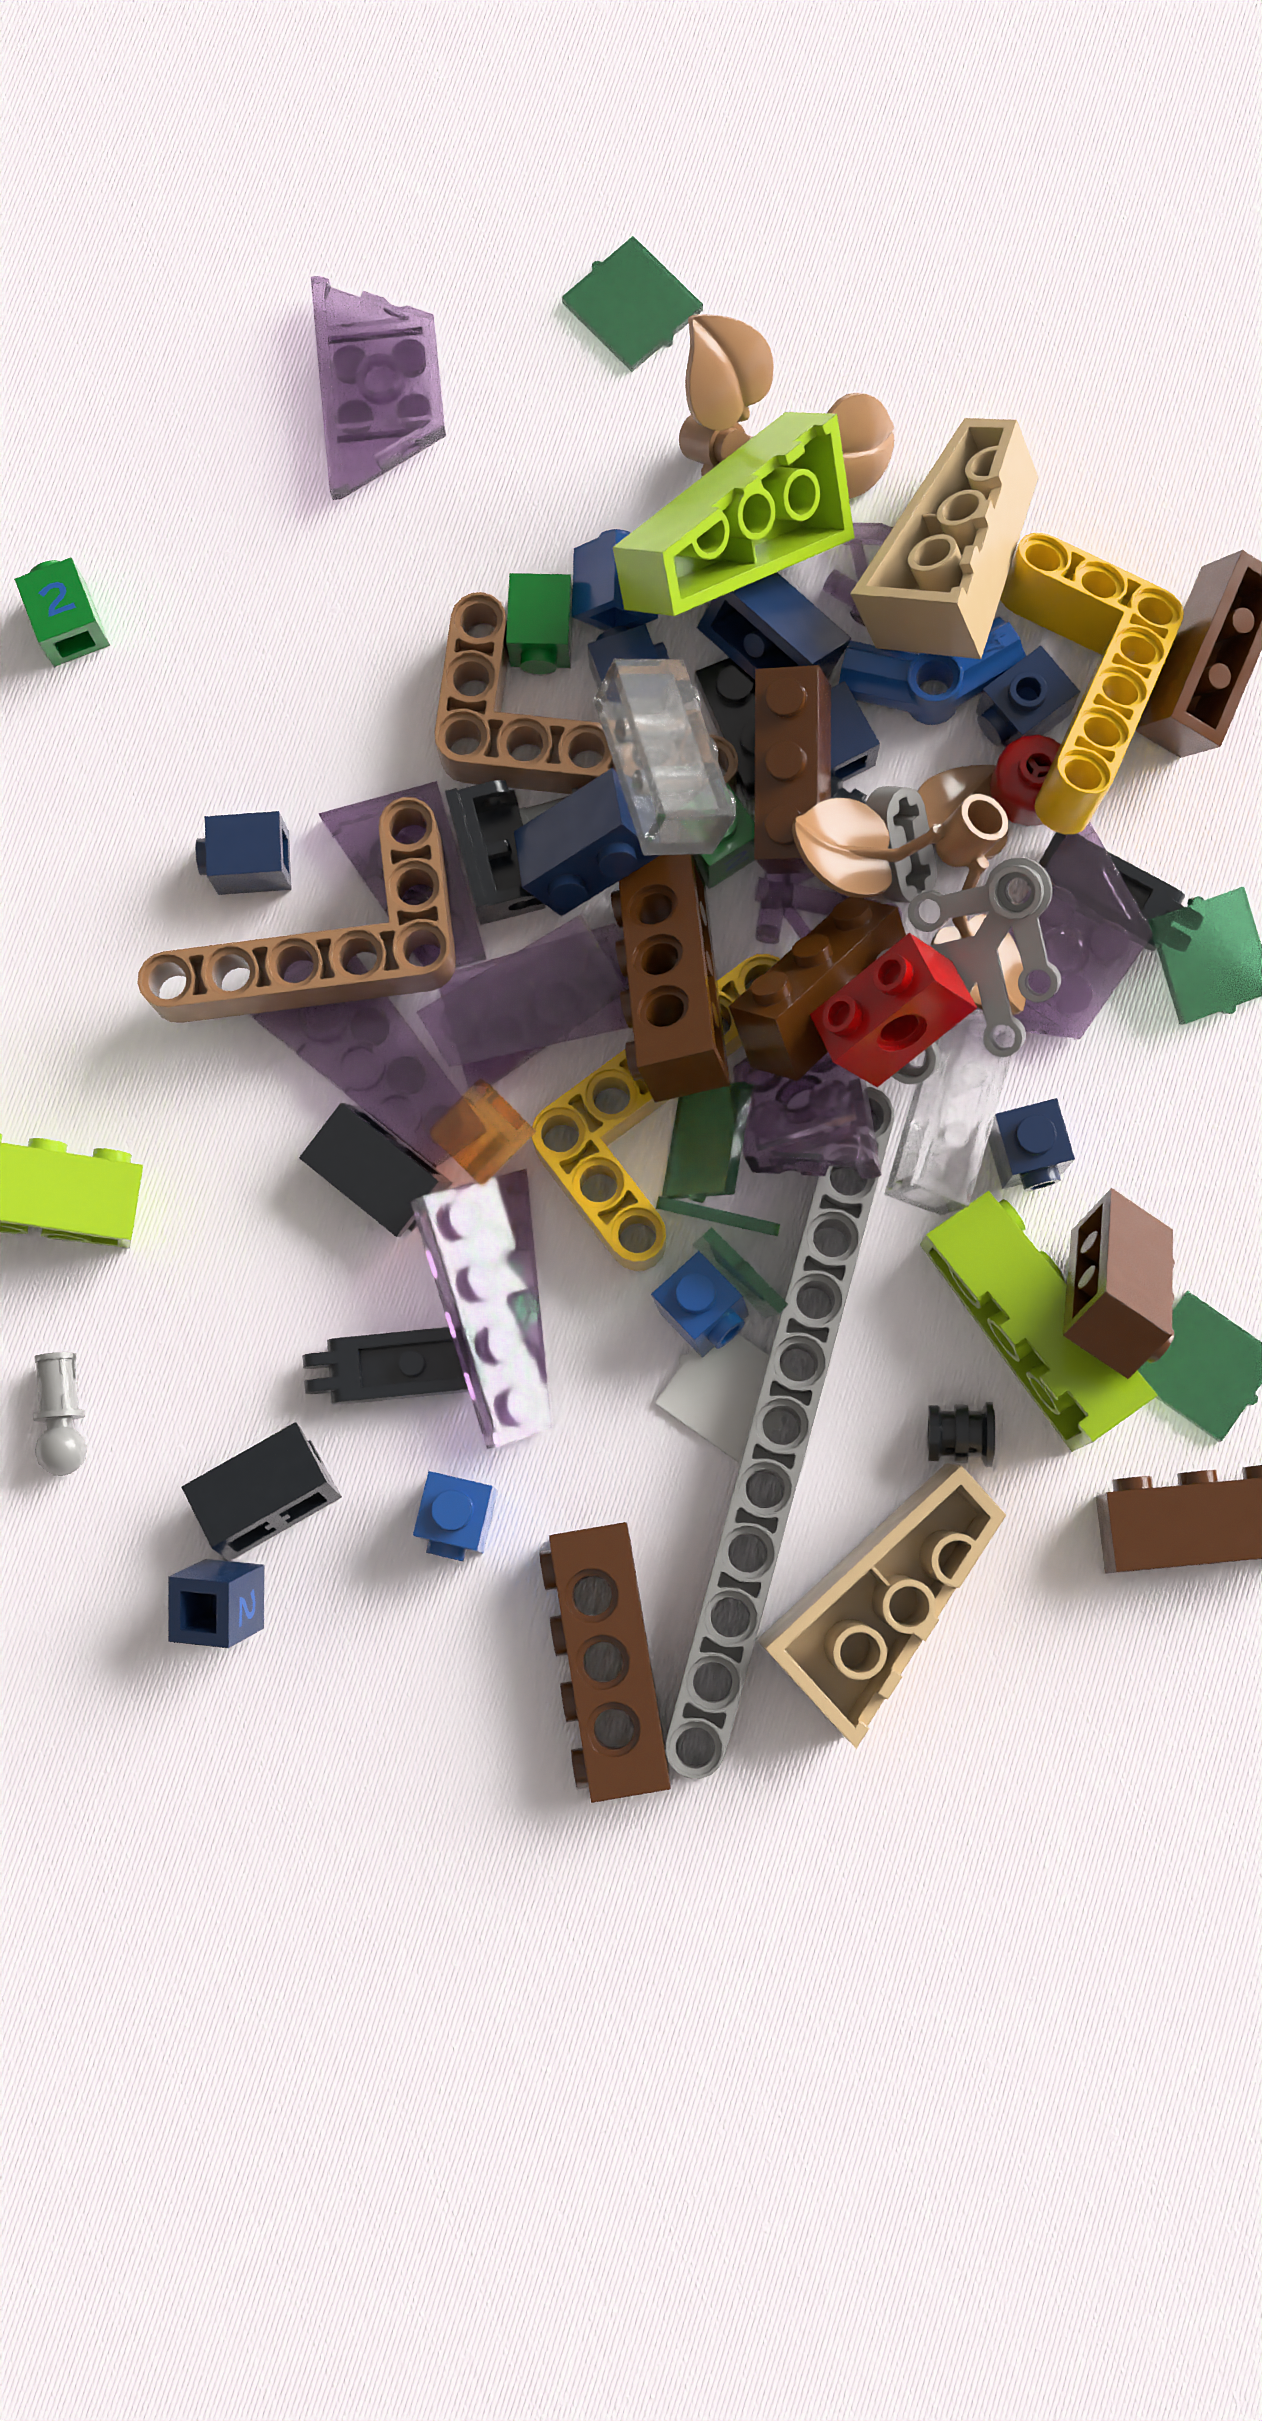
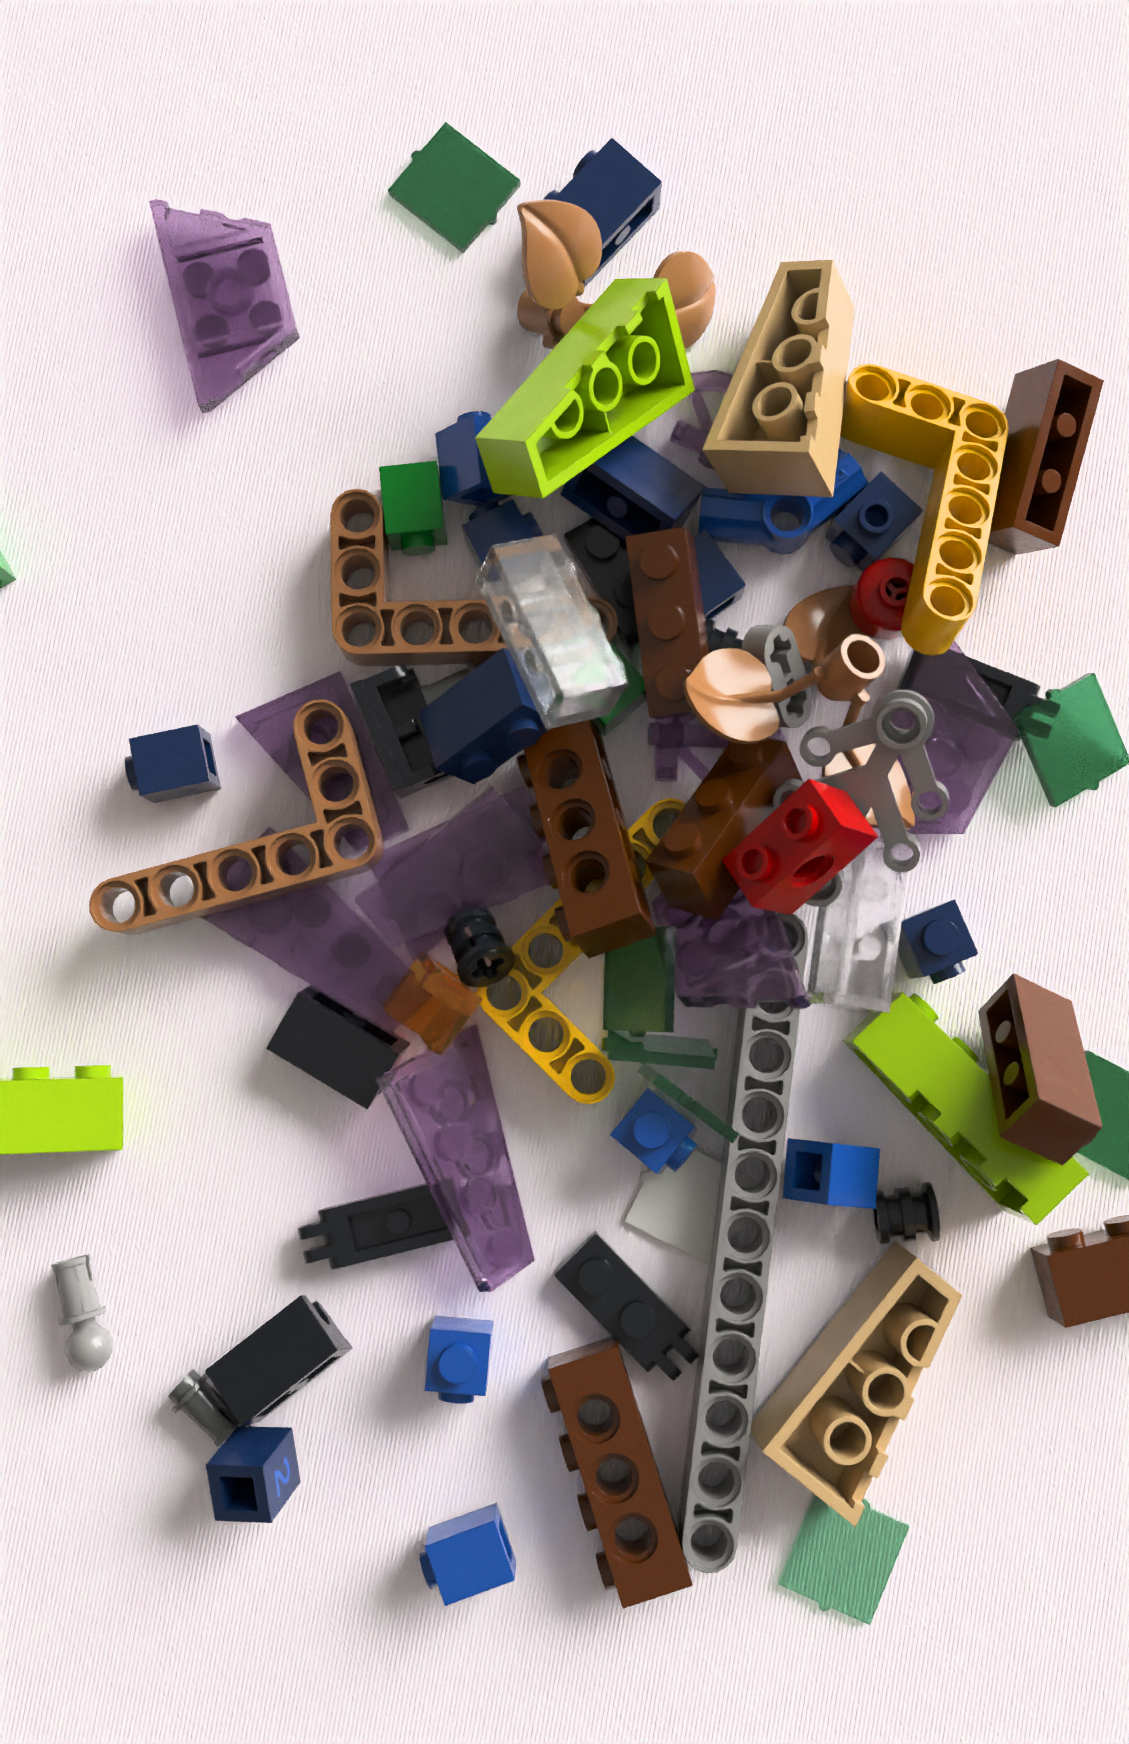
camera: 15 degrees left, 5 degrees up
(174, 1530) = (204, 1406): none -> dark grey pin
(432, 1725) = (468, 1555): none -> blue brick
(526, 1085) = (484, 942): none -> black bush
(643, 1491) = (626, 1305): none -> black hinge
(803, 335) = (615, 193): none -> dark blue brick
(843, 1798) = (844, 1563): none -> clear green piece
(898, 1373) = (831, 1173): none -> blue brick

